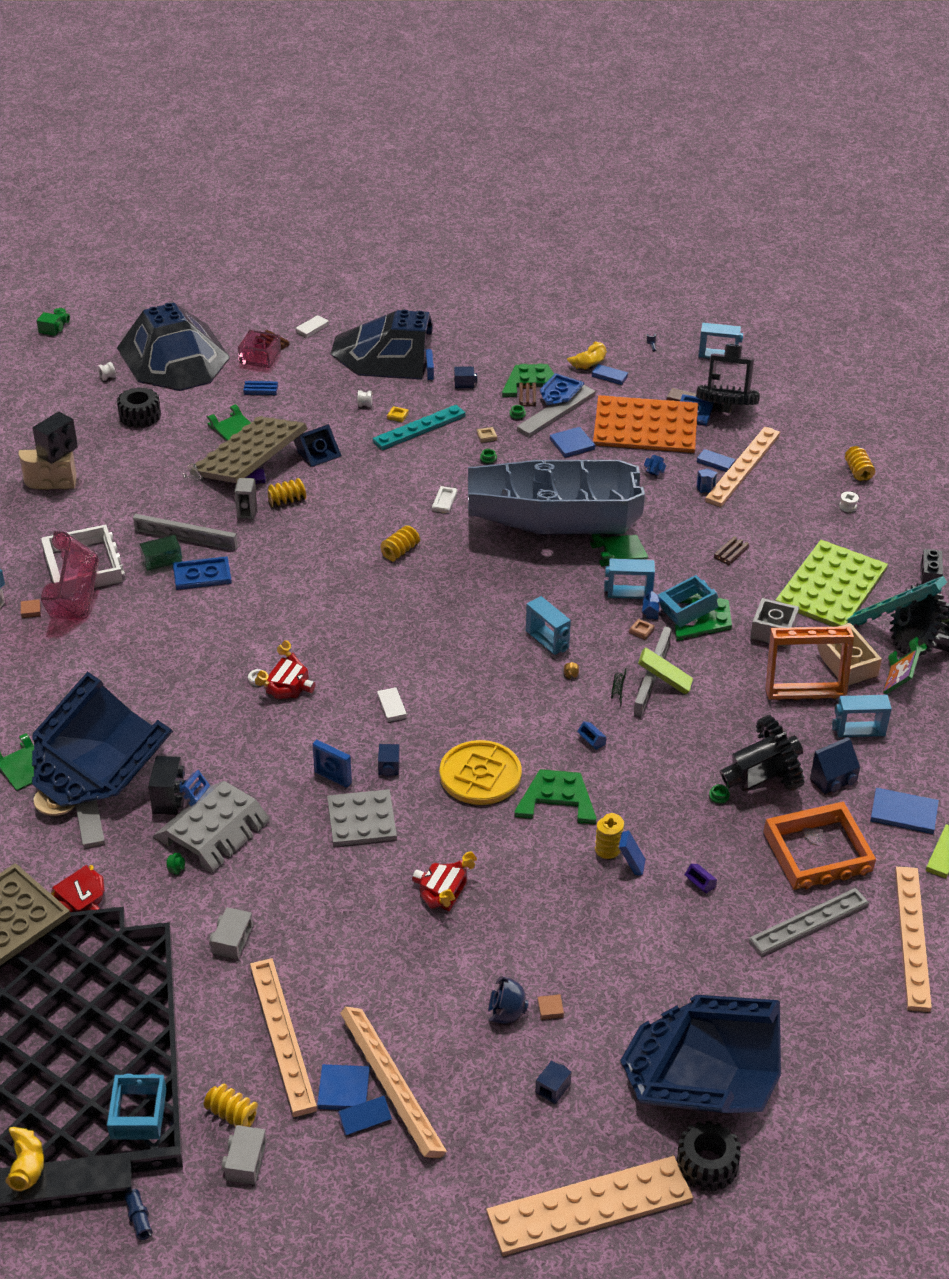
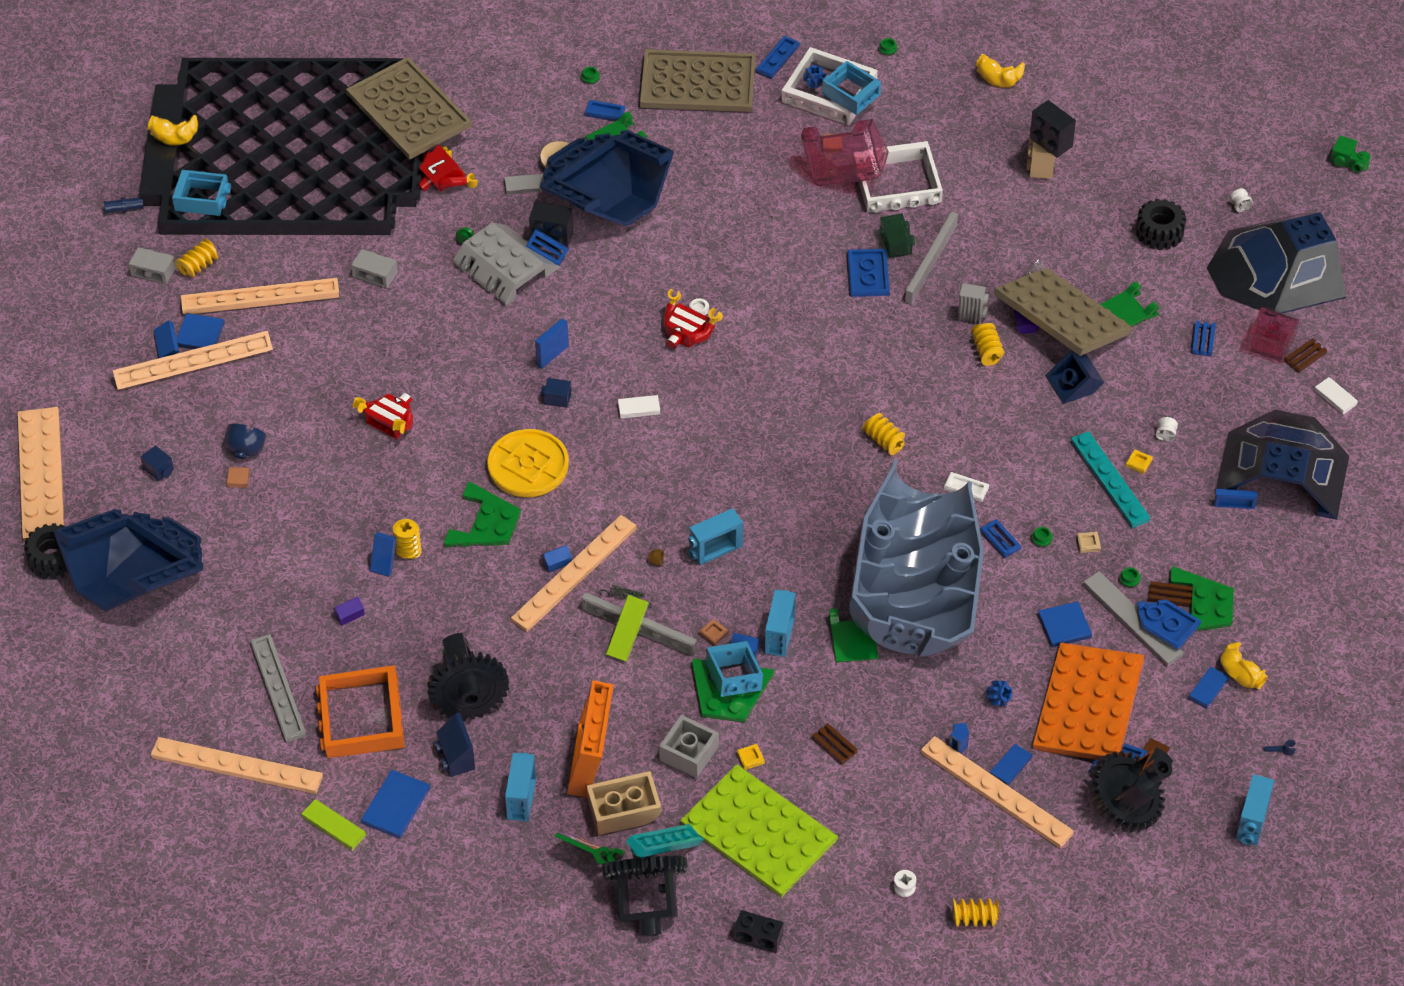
camera: 100 degrees right, 10 degrees up
(361, 817) = (492, 370): light grey plate -> none
(464, 377) = (1204, 530): dark blue brick -> none
(608, 726) = (573, 573): none -> light nougat plate
(762, 592) = (750, 756): none -> yellow tile

